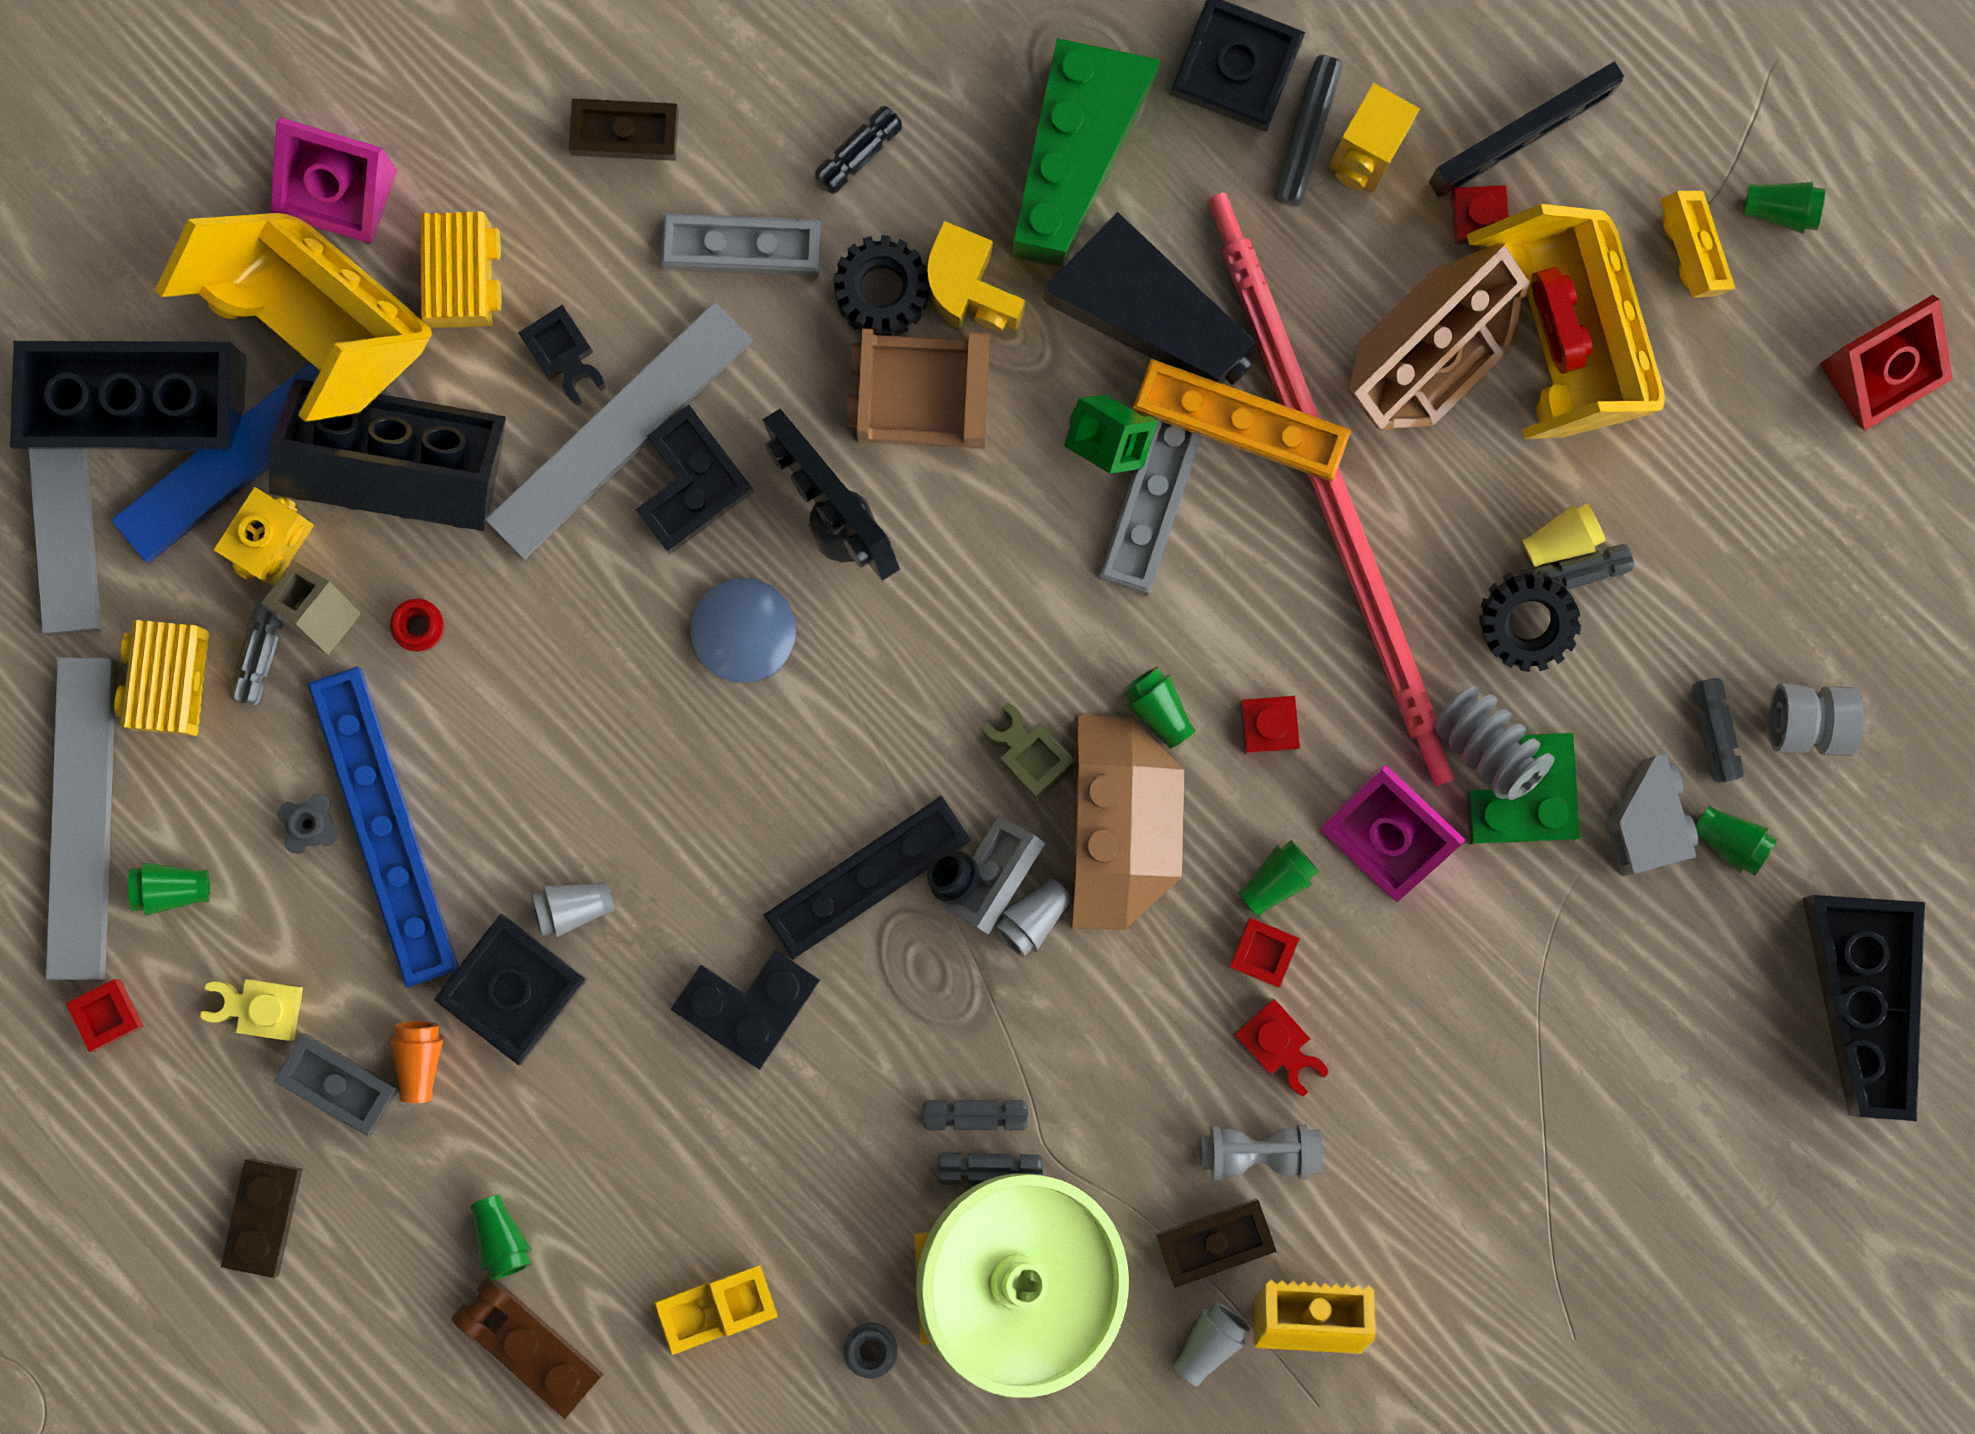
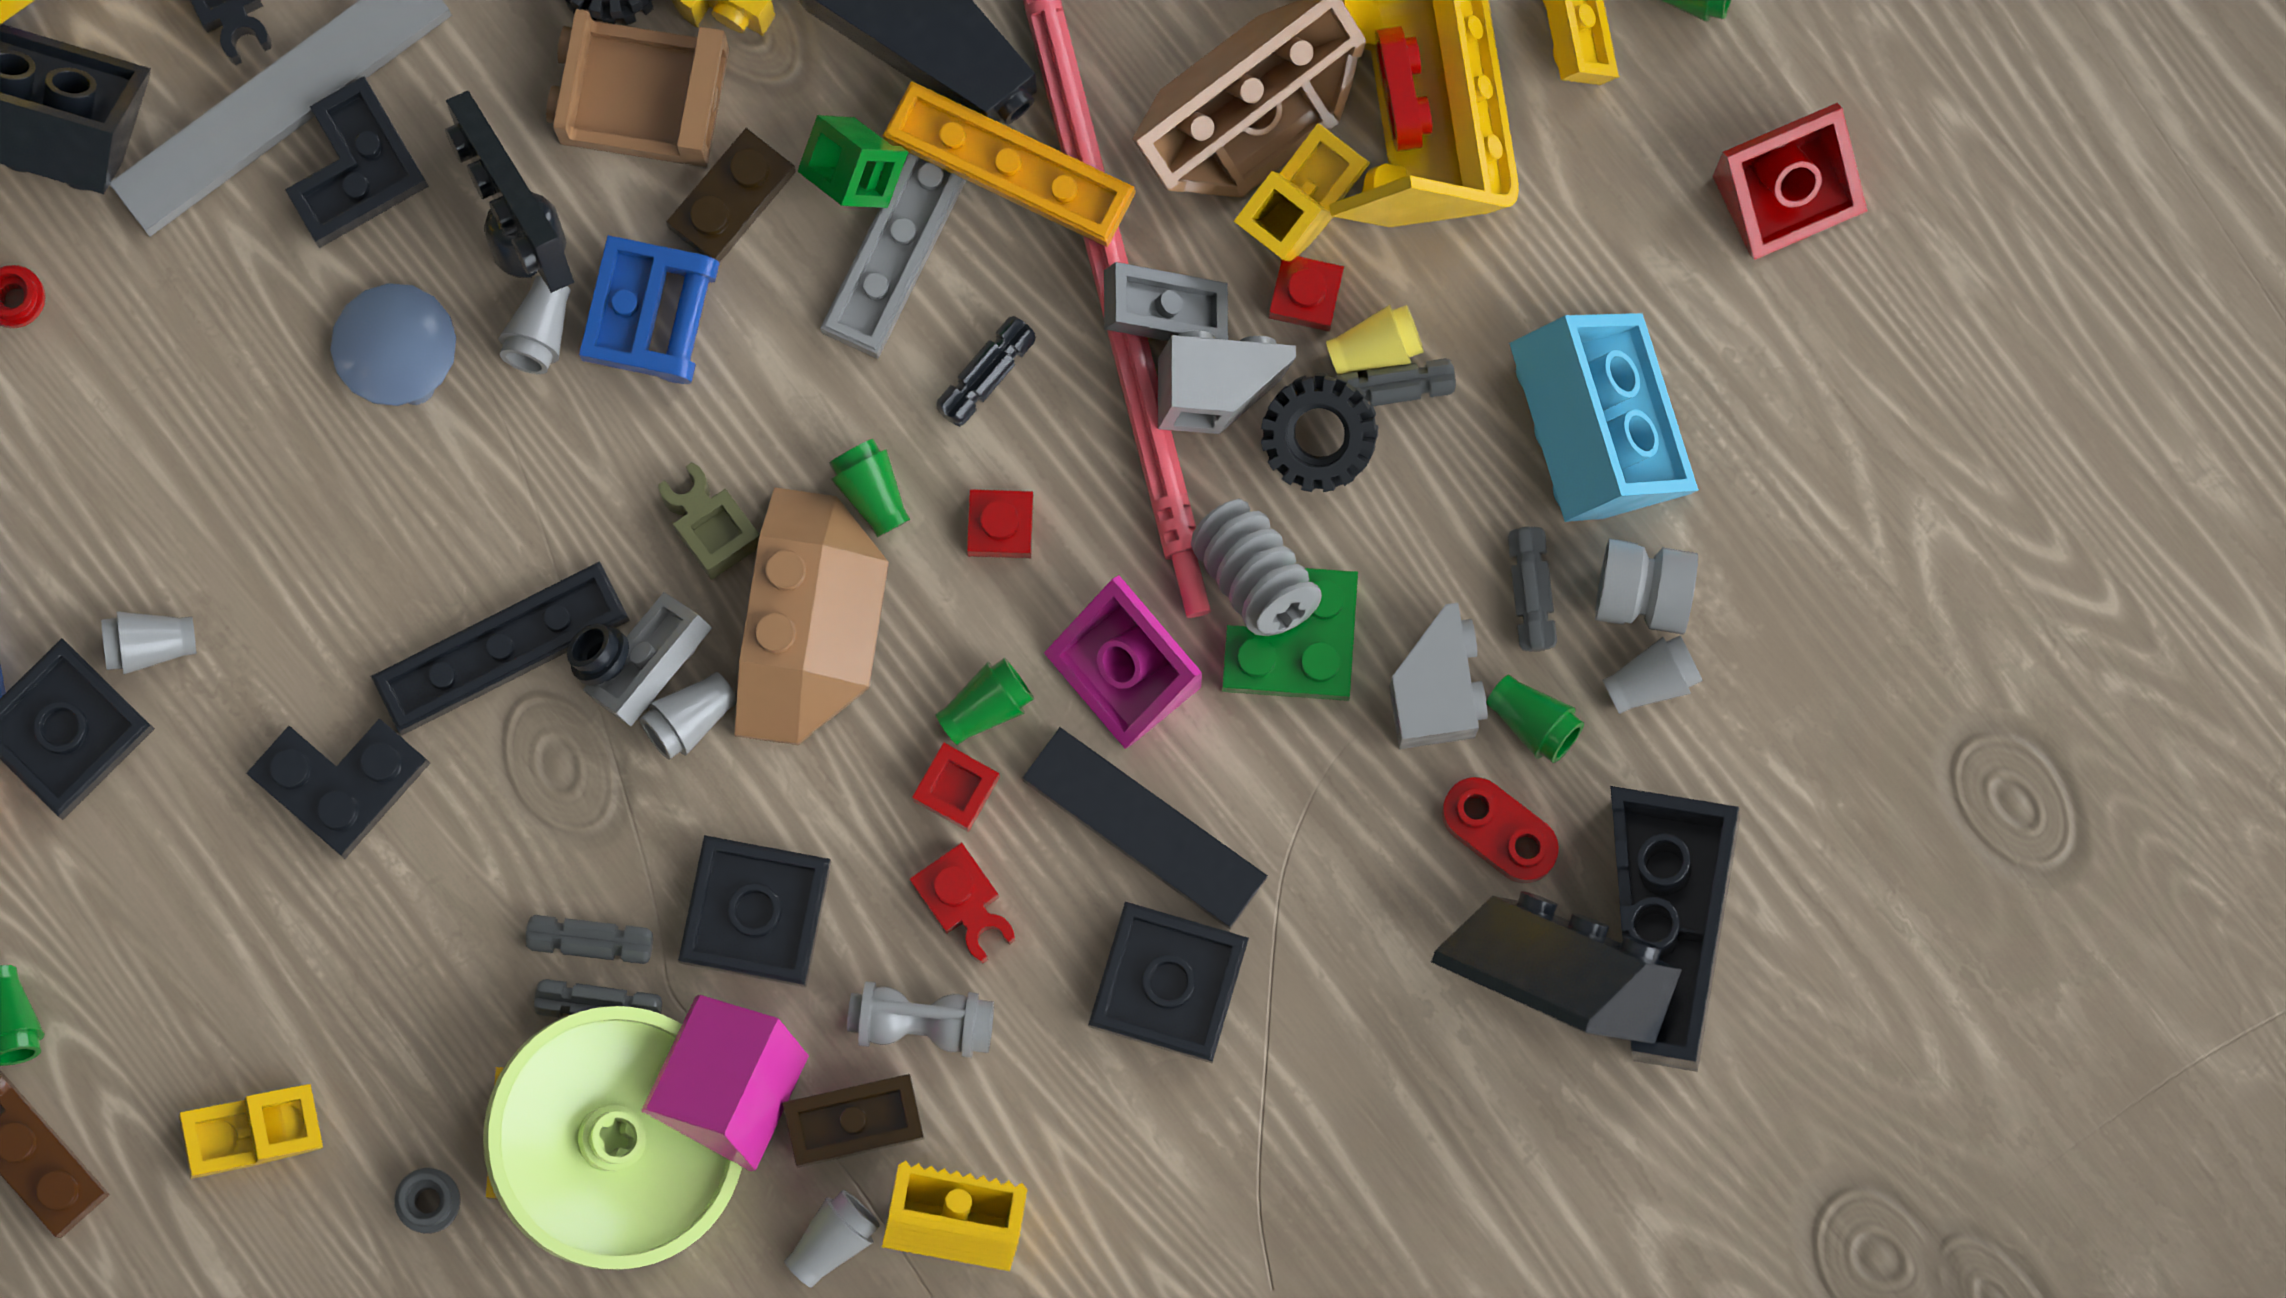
camera: 15 degrees right, 5 degrees down
(861, 606) = (535, 330): none -> light grey cone
(936, 576) = (628, 304): none -> blue plate
(1008, 472) = (731, 196): none -> dark brown plate
(1108, 1224) = (727, 1079): none -> dark pink slope
(1110, 1076) = (755, 911): none -> black plate
(1241, 597) = (986, 371): none -> black axle
(1388, 527) = (1162, 303): none -> dark grey plate
(1423, 968) = (1145, 828): none -> black tile
(1437, 588) = (1214, 381): none -> light grey slope
(1460, 1096) = (1168, 982): none -> black plate
(1491, 419) = (1295, 203): none -> yellow brick
(1498, 500) = (1306, 293): none -> red plate
(1717, 936) = (1496, 833): none -> red plate
(1758, 579) = (1602, 415): none -> medium azure slope
(1798, 1056) = (1563, 967): none -> black slope
(1830, 791) = (1654, 676): none -> light grey cone

